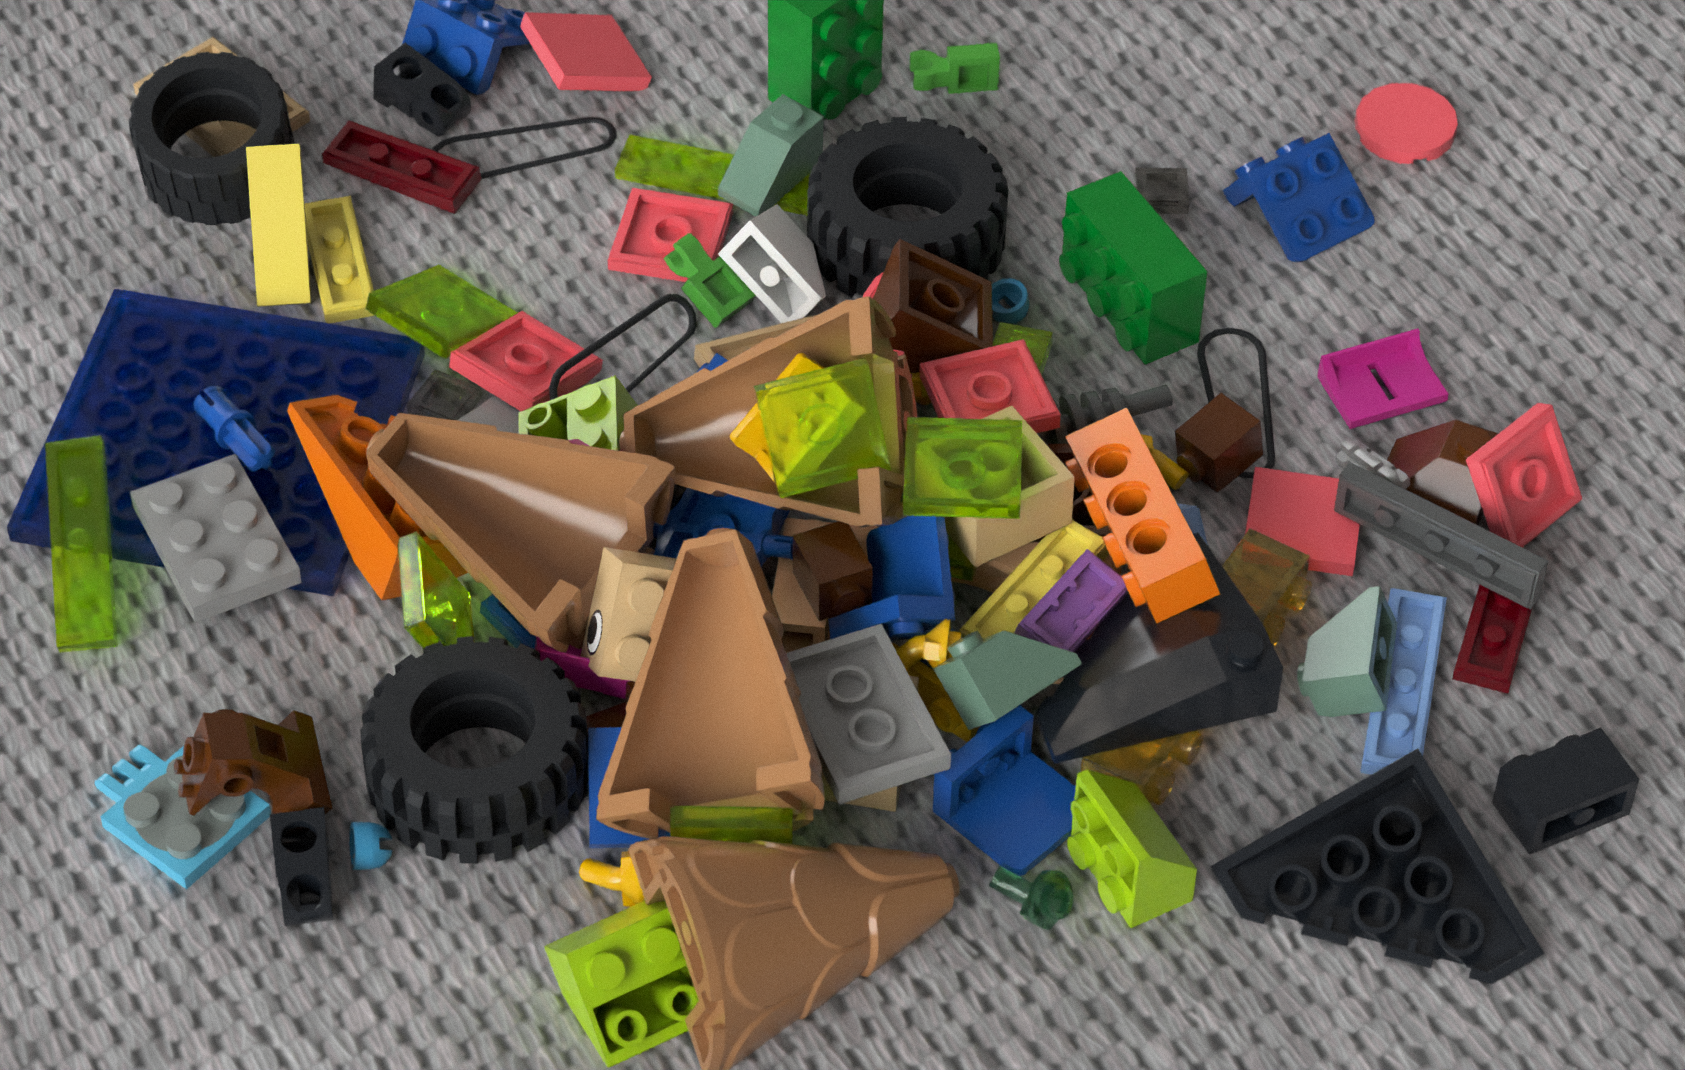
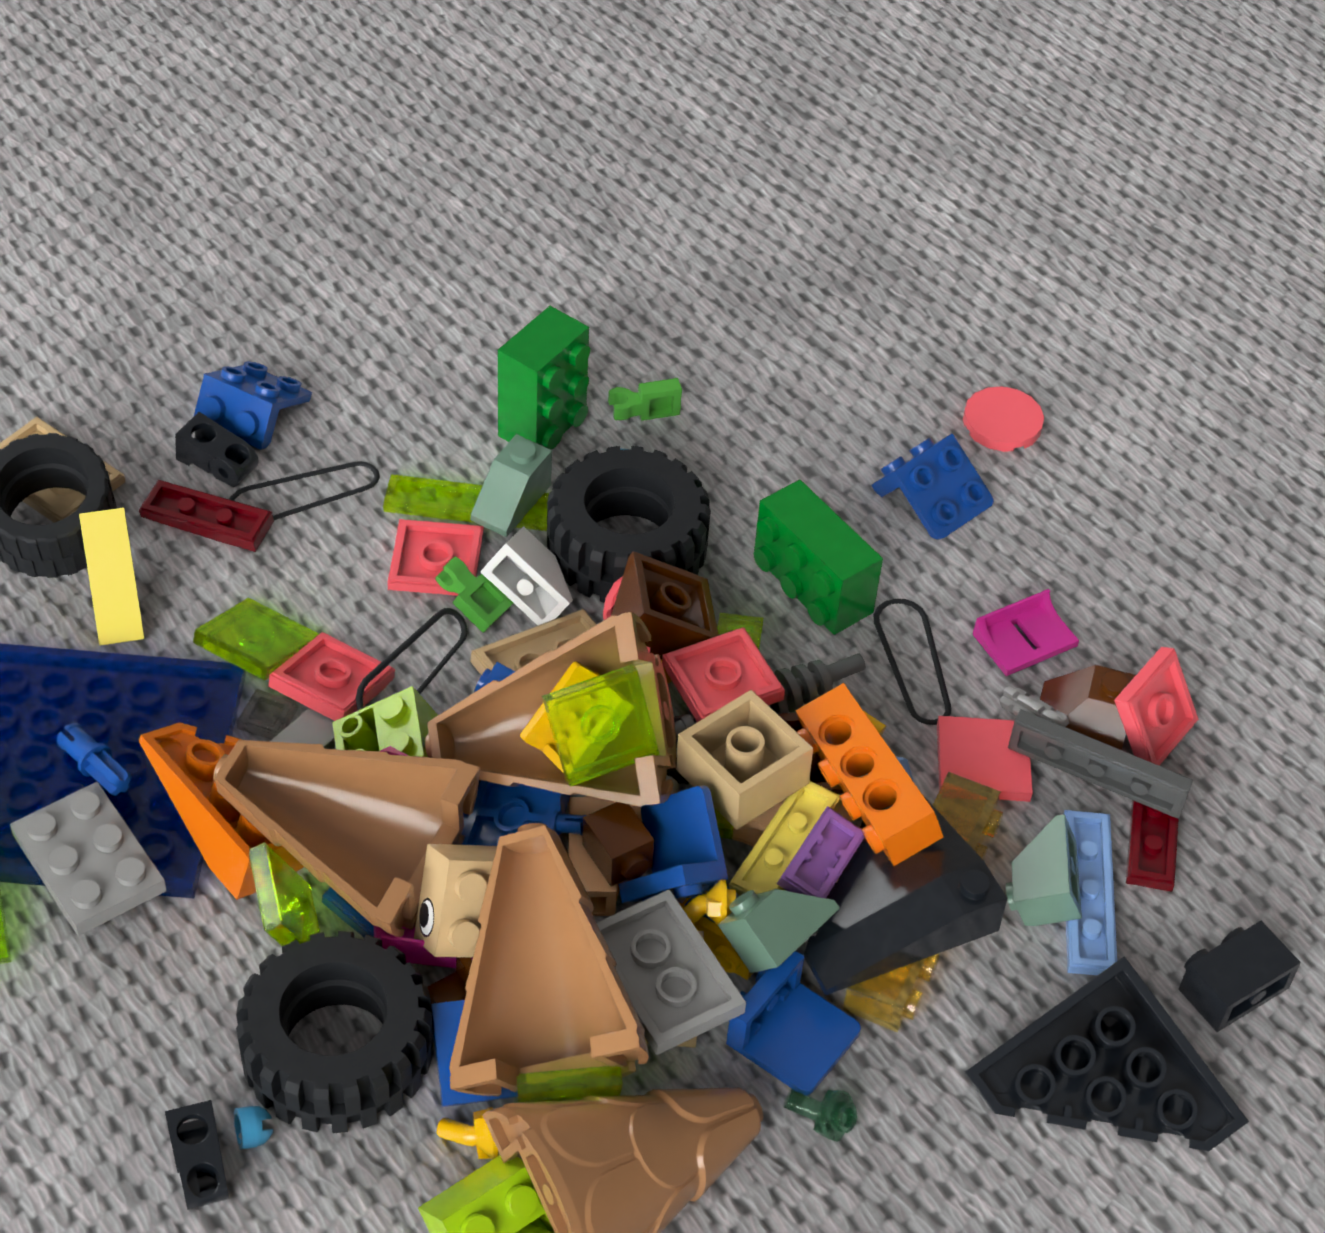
camera: 10 degrees left, 0 degrees up
(158, 823) = (82, 1111): piece -> none
(244, 752) = (138, 1057): reddish brown tile -> none
(338, 259) = (163, 600): light yellow tile -> none
(585, 52) = (346, 408): coral tile -> none
(963, 468) = (722, 749): clear neon green tile -> none
(1015, 296) = (723, 586): dark azure hinge -> none
(1127, 849) = (897, 1066): lime slope -> none
(1164, 189) = (827, 486): clear smoke tile -> none
(1218, 443) = (907, 698): reddish brown brick -> none

